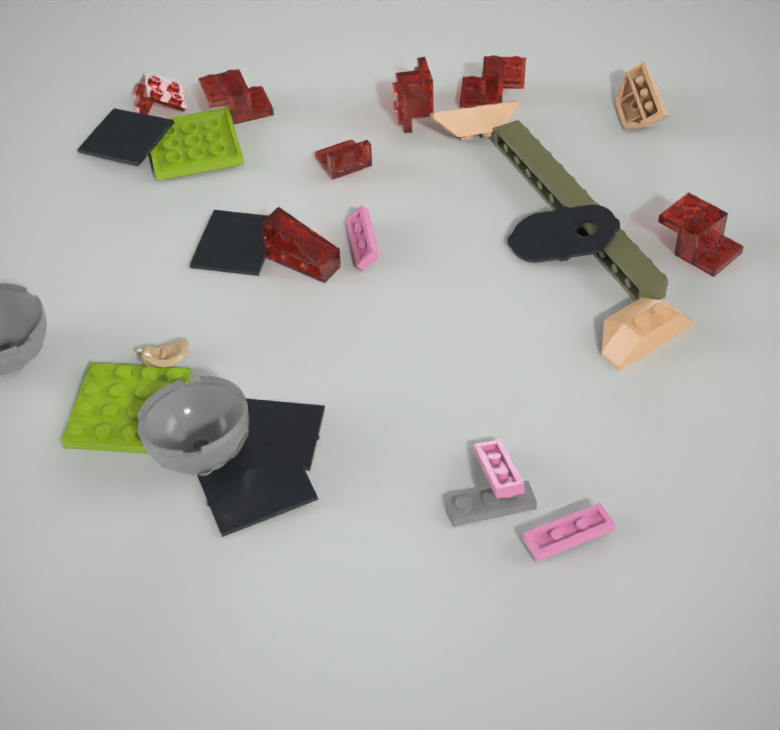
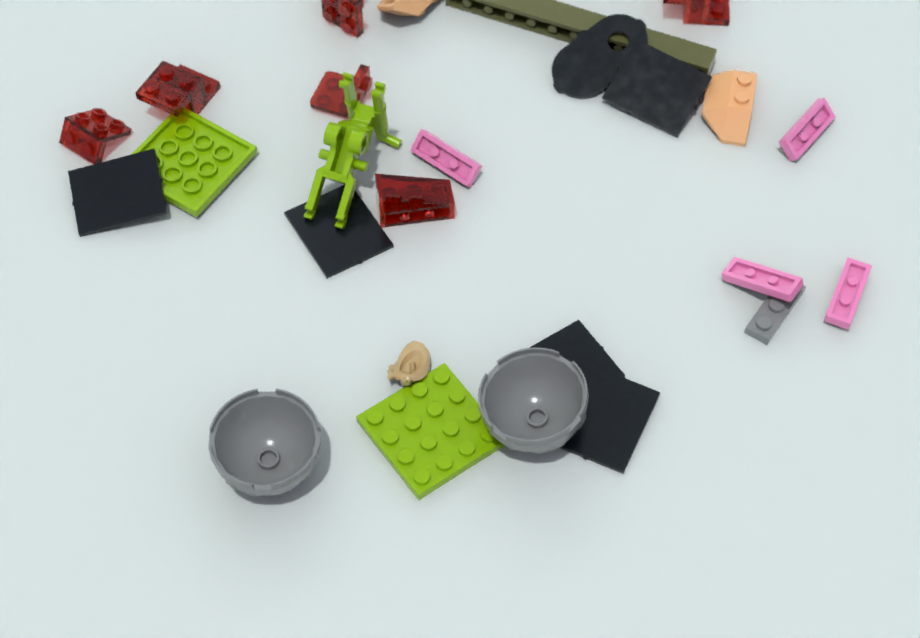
camera: 45 degrees left, 10 degrees up
(286, 177) = (347, 143): none -> lime piece
(584, 281) = (657, 88): none -> black piece
(685, 386) = (807, 129): none -> bright pink plate

